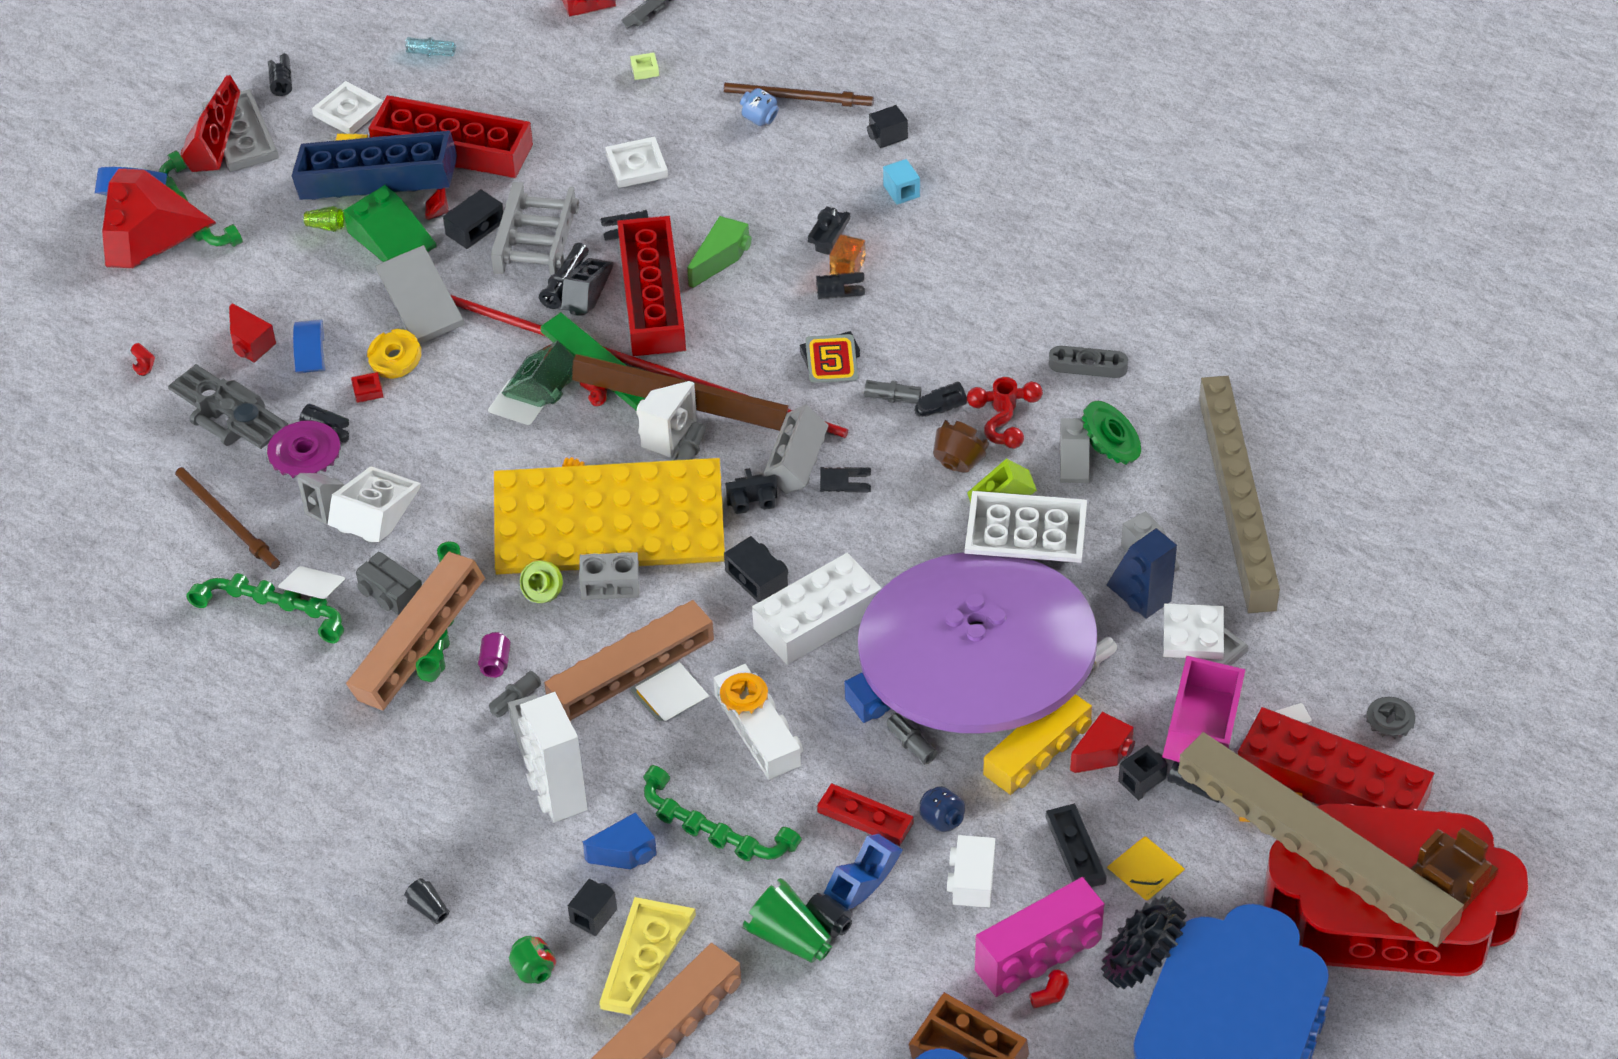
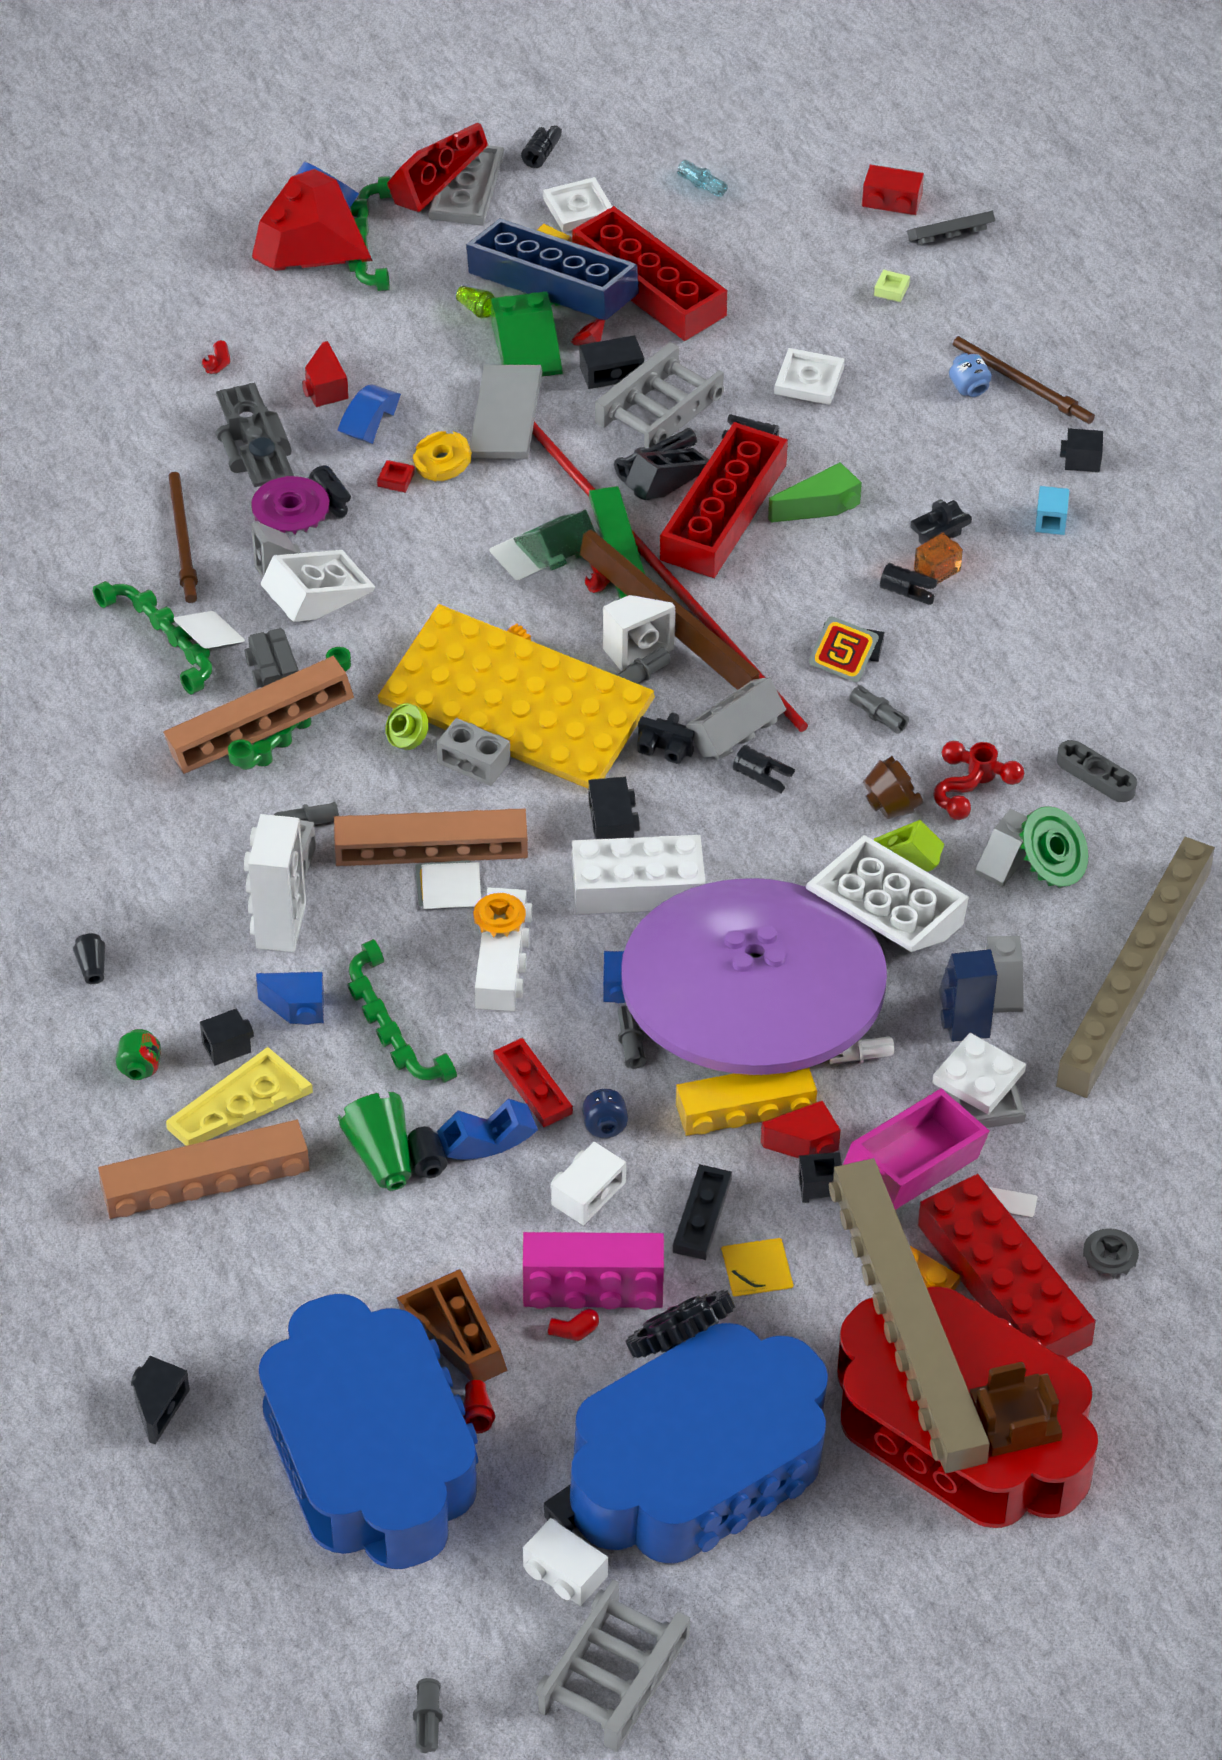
camera: 30 degrees right, 0 degrees up
(494, 654) = (316, 772): magenta brick -> none
(941, 400) = (916, 738): black hinge -> none

